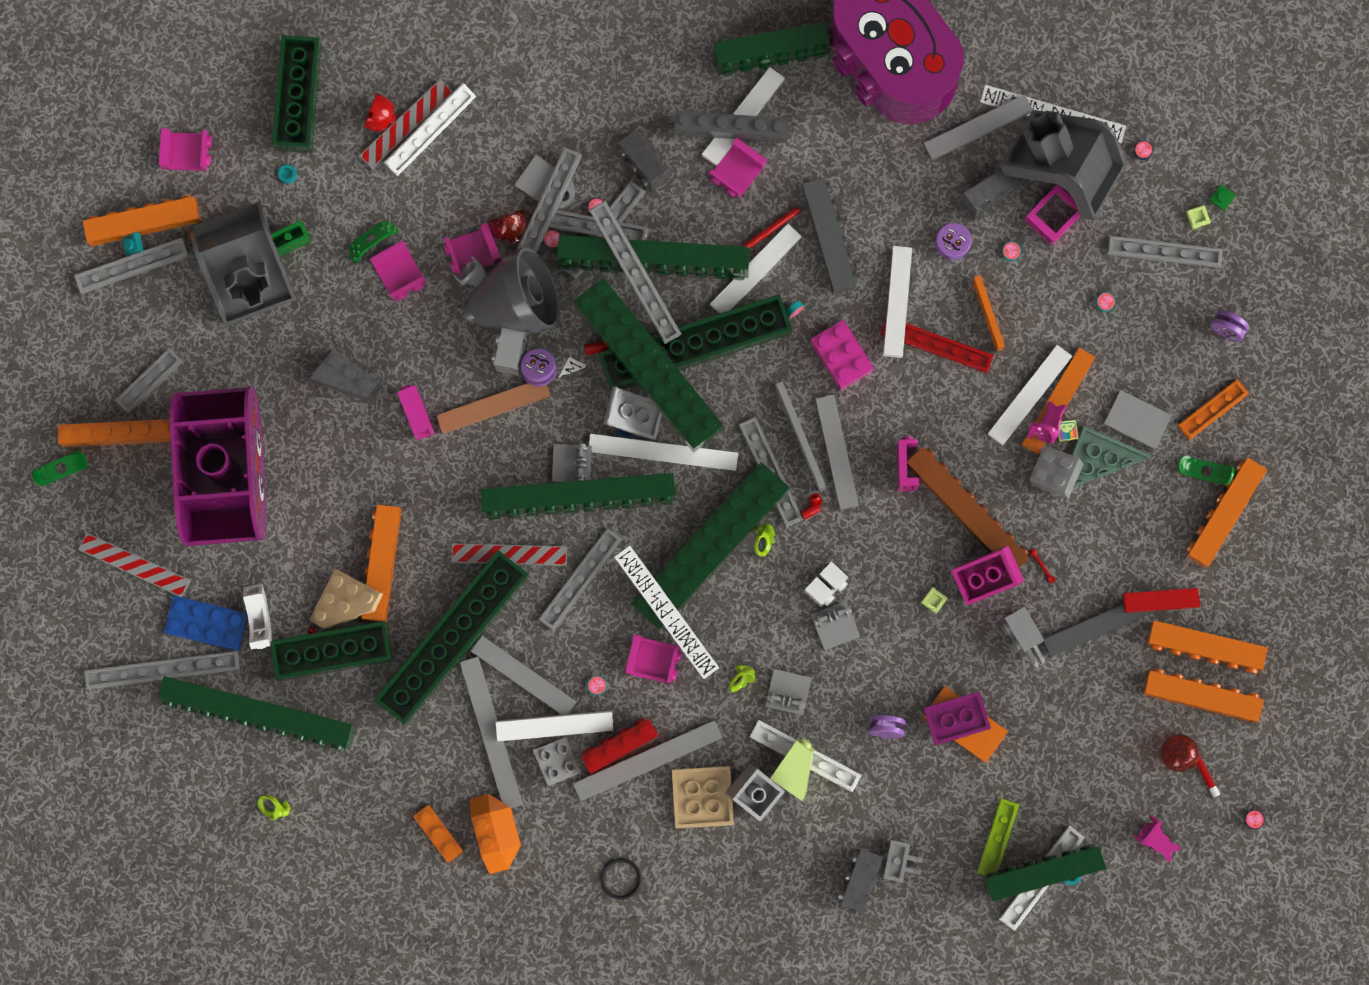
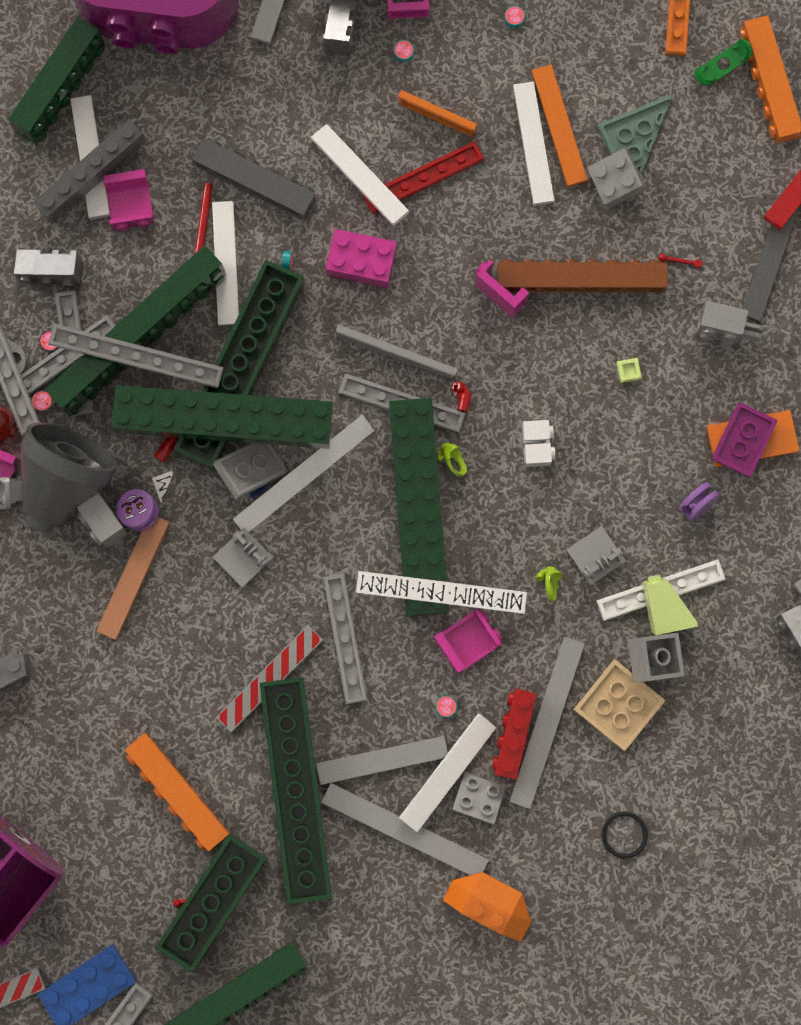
camera: 50 degrees left, 0 degrees up
(258, 616) = (124, 938): white arch -> none
(344, 601) = (179, 852): tan plate -> none
(415, 412) = (77, 645): dark pink window -> none
(438, 833) = (447, 953): orange plate -> none
(578, 495) = (275, 575): dark green brick -> none
(835, 625) = (576, 467): light grey hinge -> none
(837, 452) = (436, 336): light grey tile -> none
(953, 241) = (352, 87): medium lavender head -> none
(987, 575) = (651, 307): dark pink brick -> none
(1050, 426) = (575, 150): dark pink hair -> none
(1068, 431) = (589, 141): tile -> none
(1137, 420) = (632, 79): light grey tile -> none

